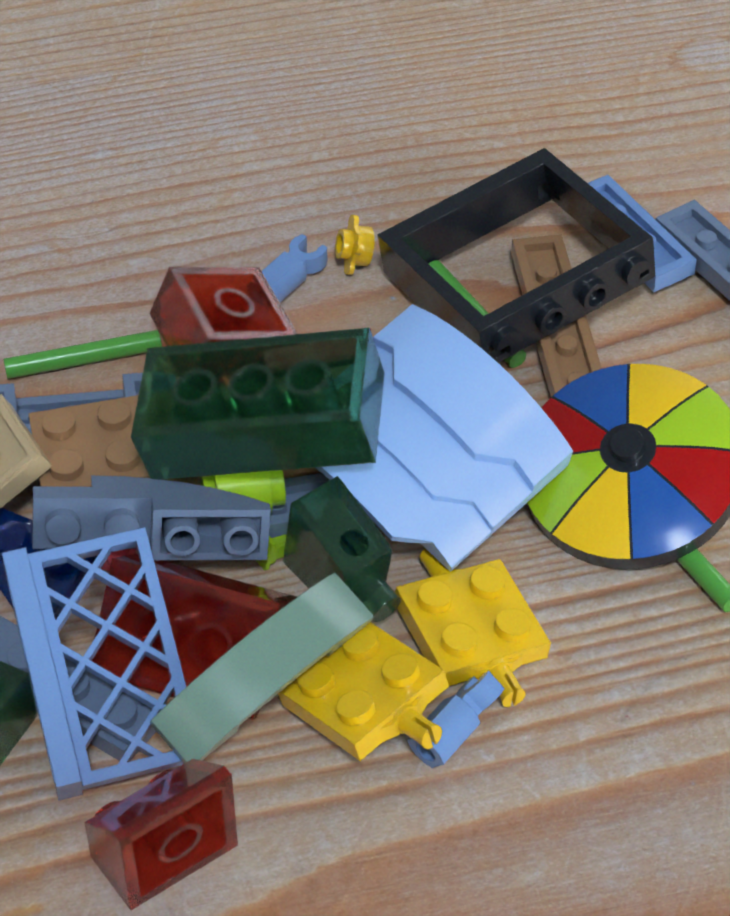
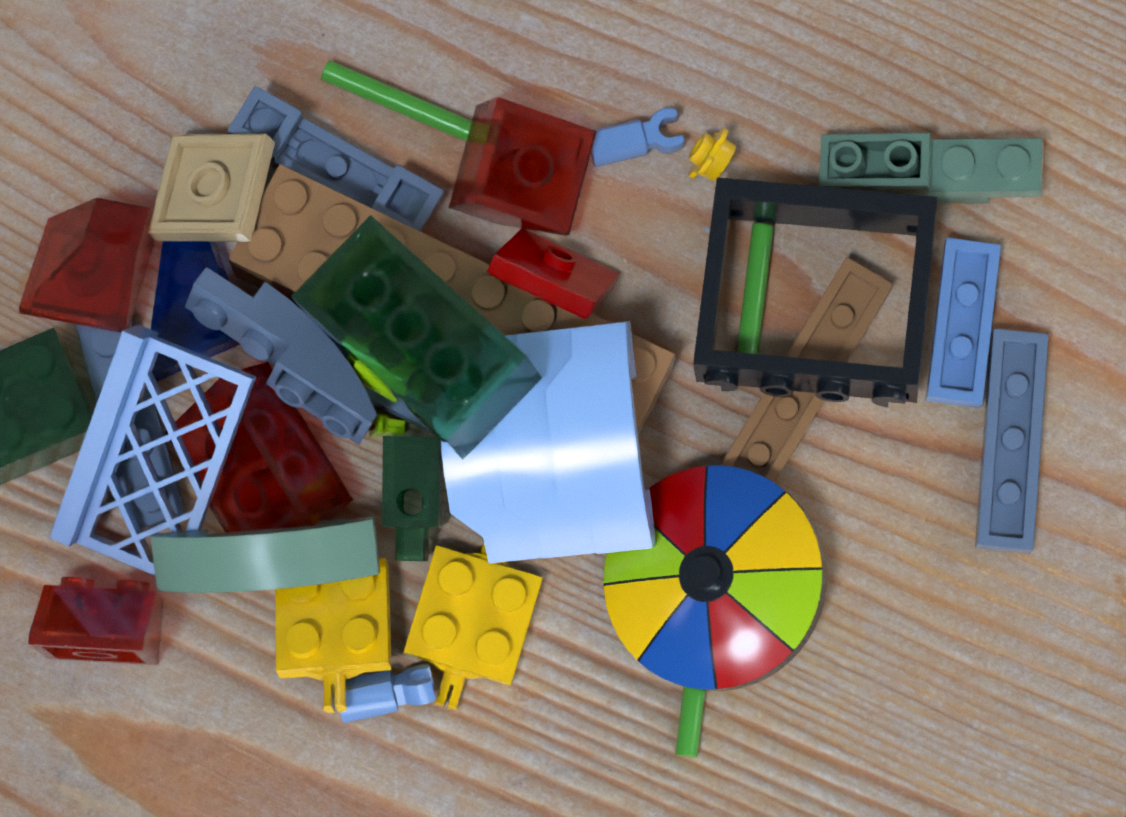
camera: 40 degrees right, 30 degrees up
(561, 132) = (933, 167): none -> sand green slope

